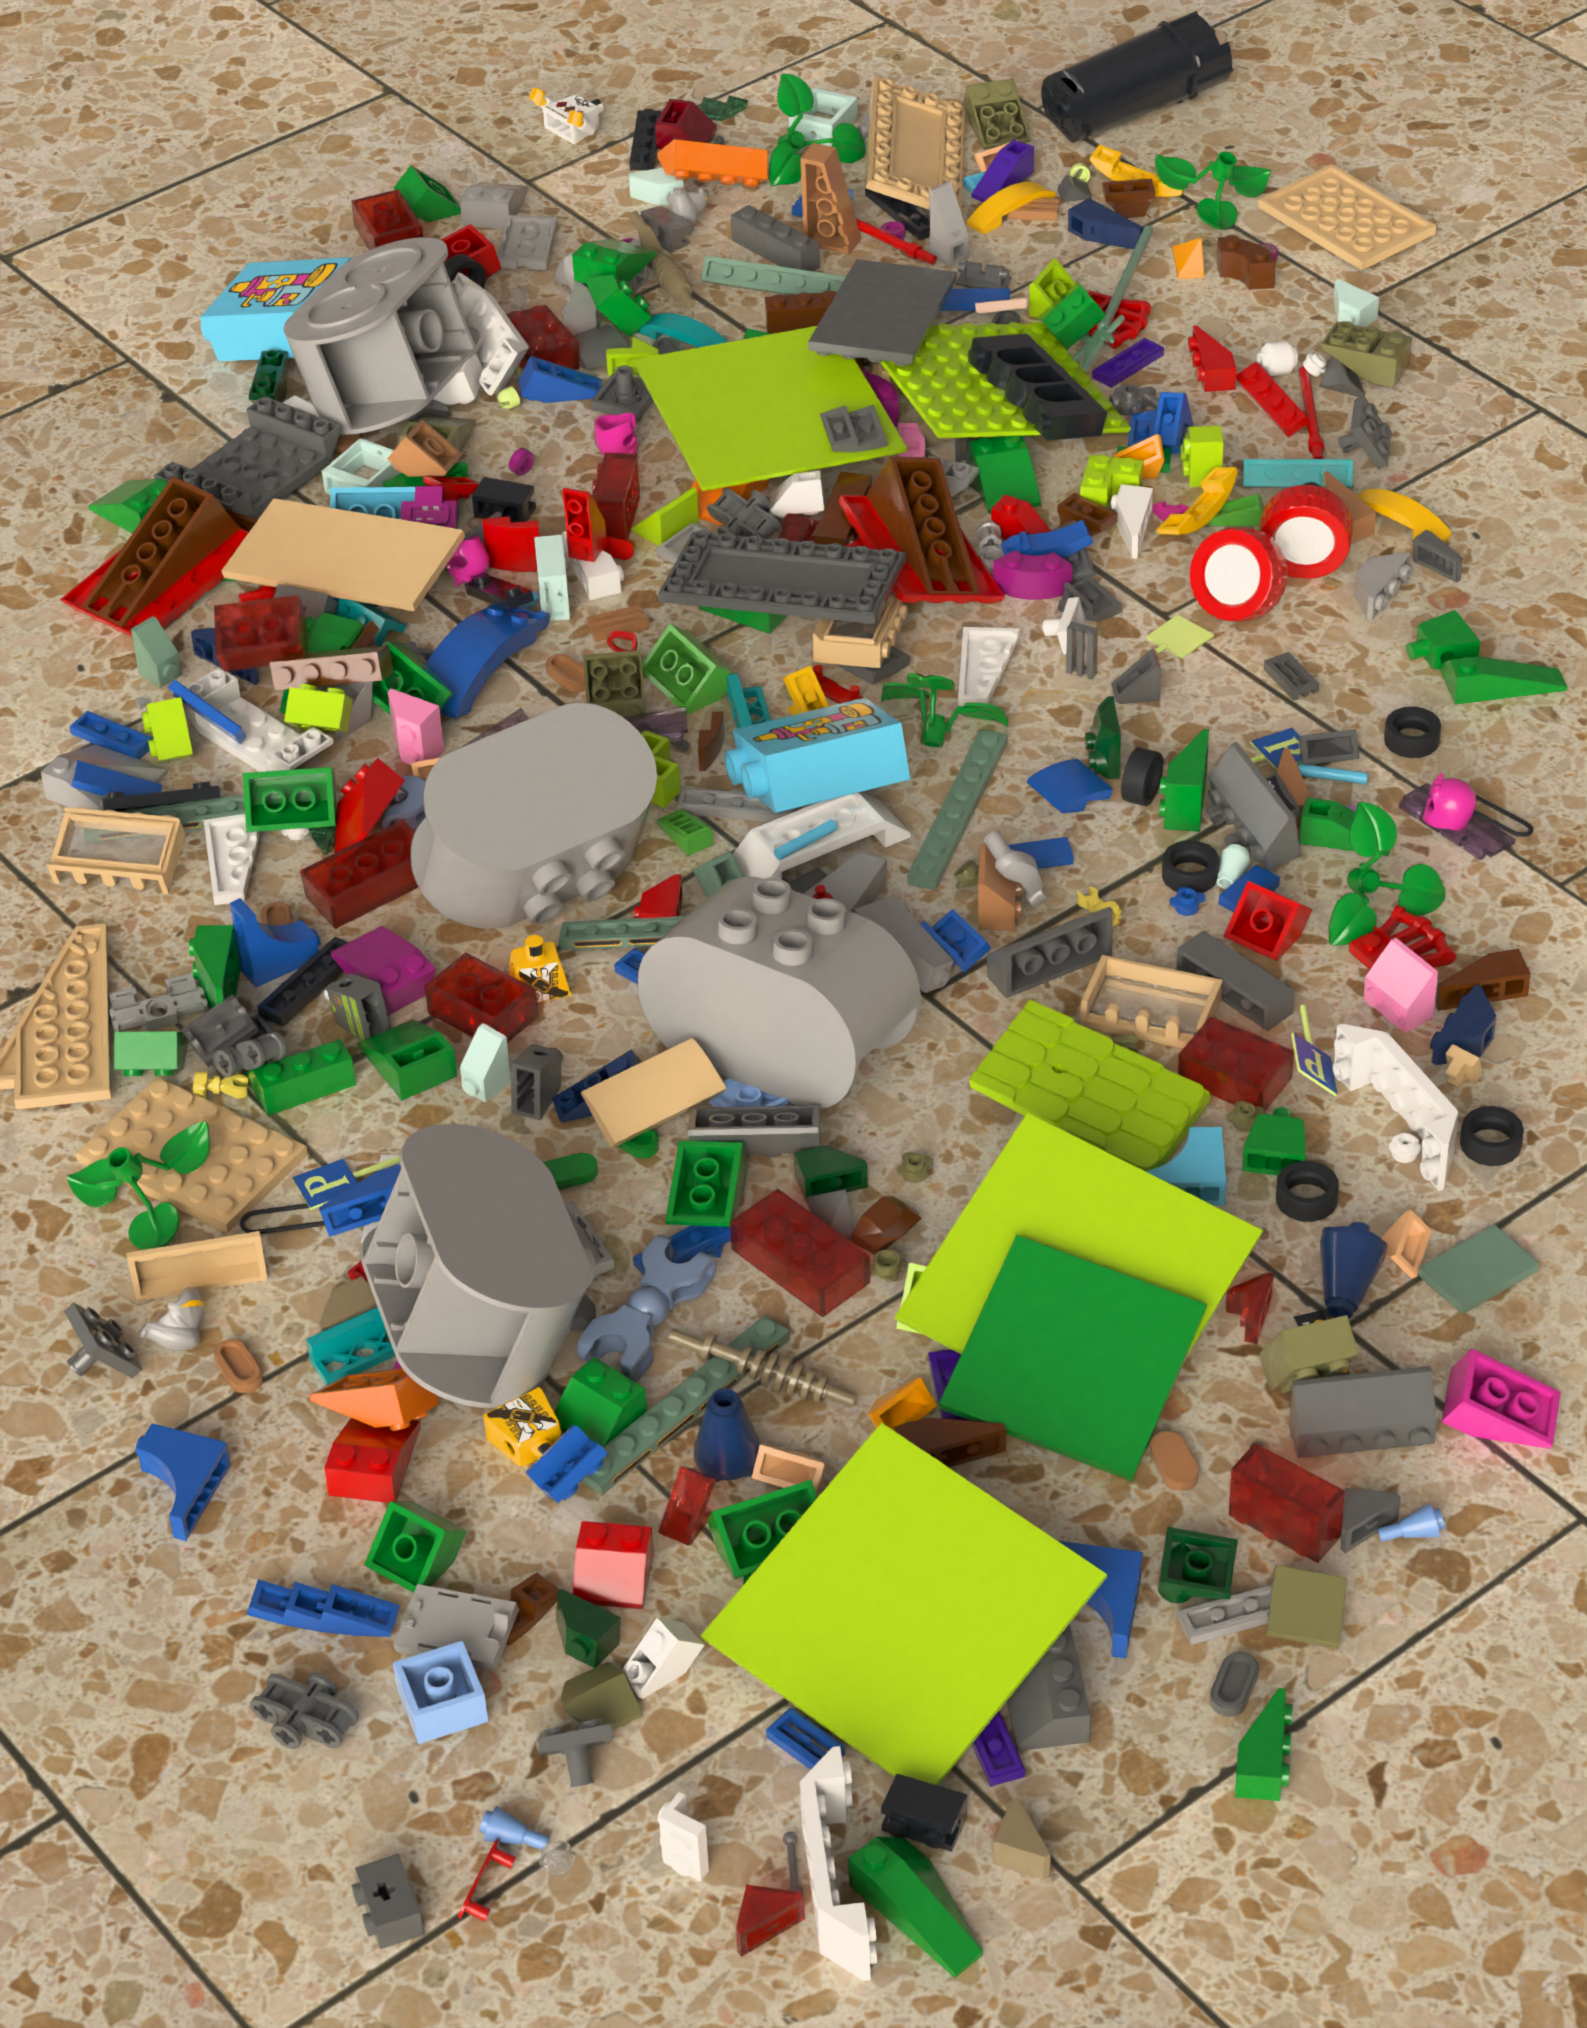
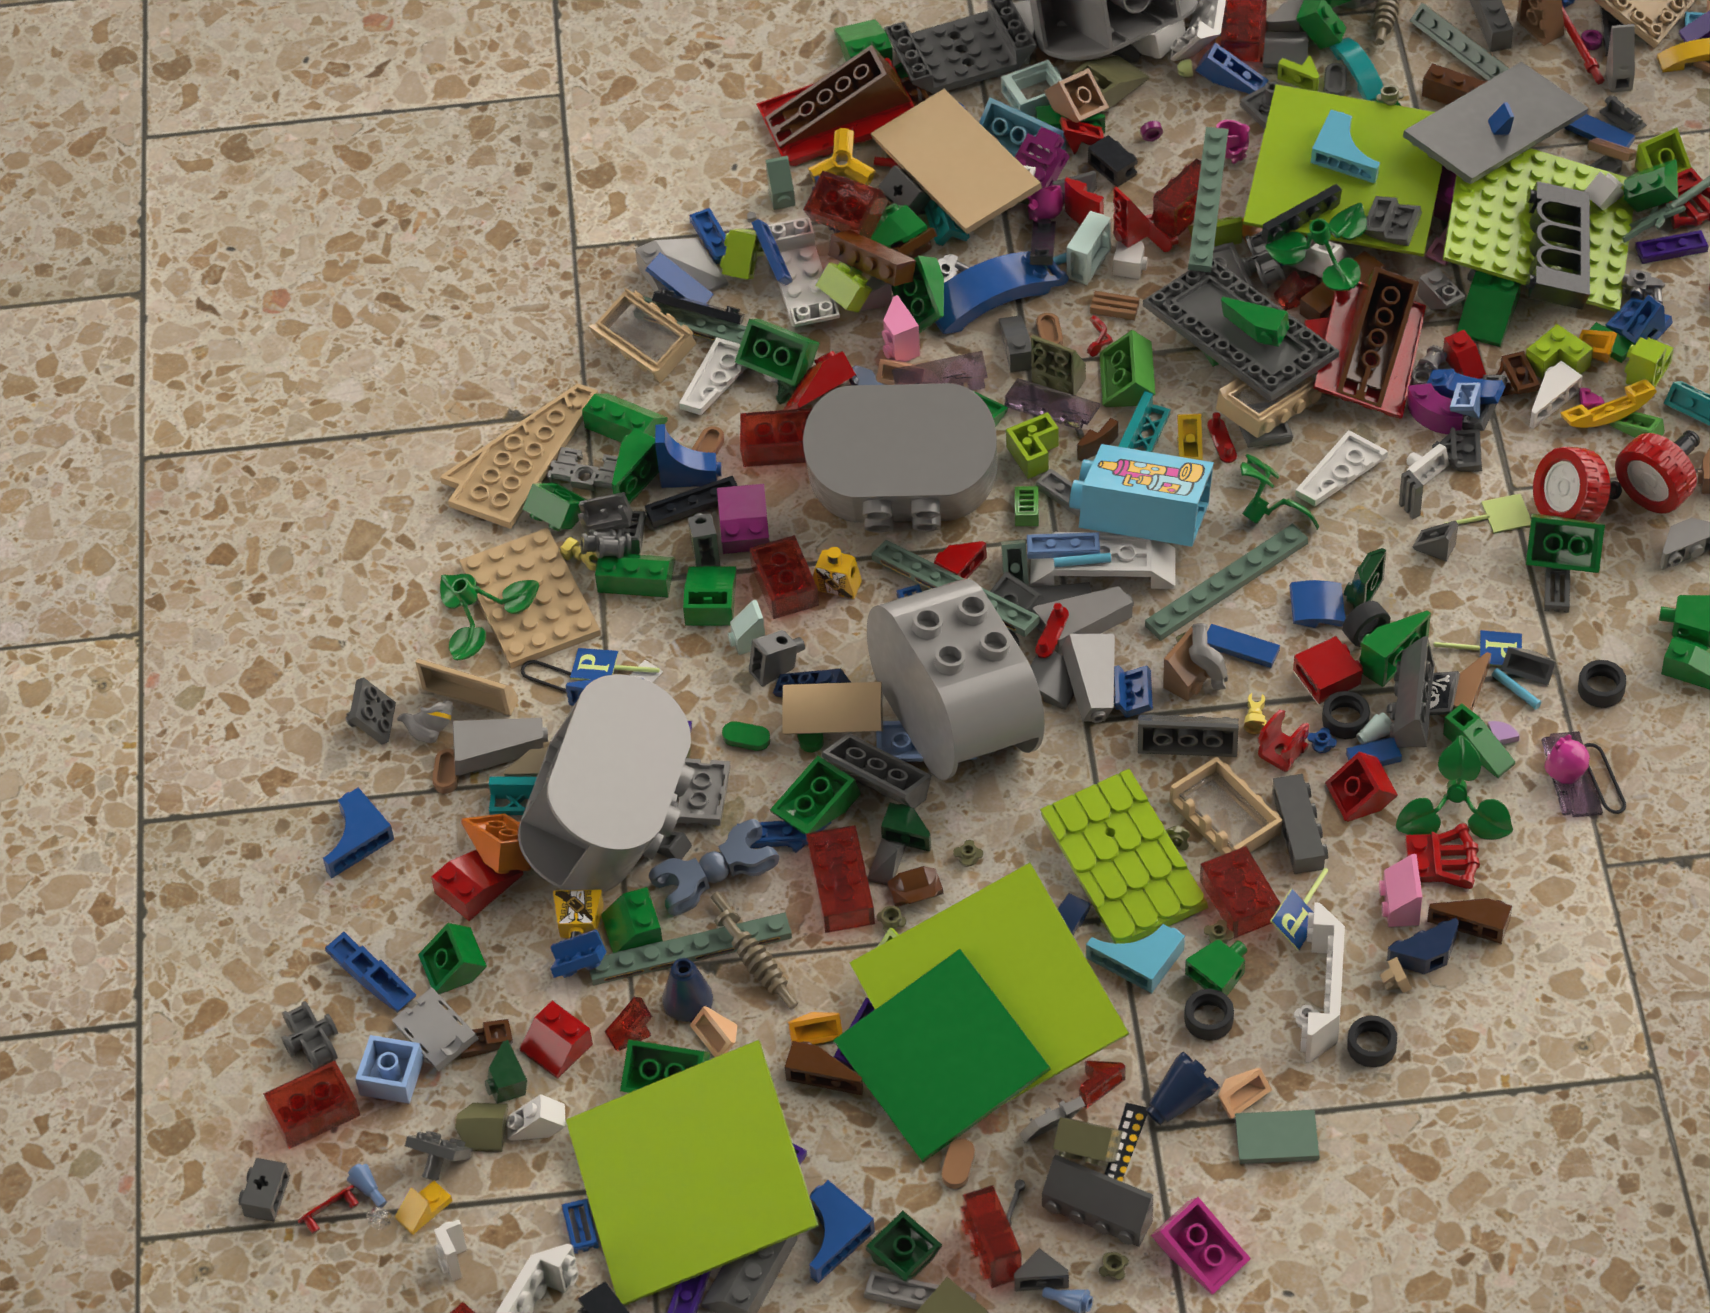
camera: 35 degrees right, 10 degrees up
(153, 942) = (618, 417): none -> green slope
(202, 600) = (843, 151): none -> yellow piece
(277, 1306) = (494, 742): none -> light grey slope
(374, 1777) = (312, 1104): none -> clear red brick
(542, 690) = (1016, 343): none -> dark grey slope
(598, 1820) = (421, 1207): none -> yellow slope
(652, 480) = (1208, 199): none -> sand green plate
(752, 389) = (1337, 151): none -> medium azure arch
(757, 327) = (1390, 95): none -> olive plate
(761, 453) = (1302, 213): none -> black plate
(770, 836) = (1062, 545): none -> medium blue tile
(799, 557) = (1258, 321): none -> green slope
(809, 450) = (1348, 223): none -> green plant
(894, 300) = (1501, 120): none -> blue slope
(1036, 325) = (1605, 190): none -> white slope
(1066, 546) = (1467, 399): none -> medium blue slope
(1137, 836) = (1327, 669): none -> red piece
(1166, 920) = (1272, 737): none -> red piece
(1250, 1356) = (1051, 1118): none -> light grey piece
(1271, 626) = (1565, 543): none -> green slope
(1428, 1470) = (1117, 1259): none -> olive plate

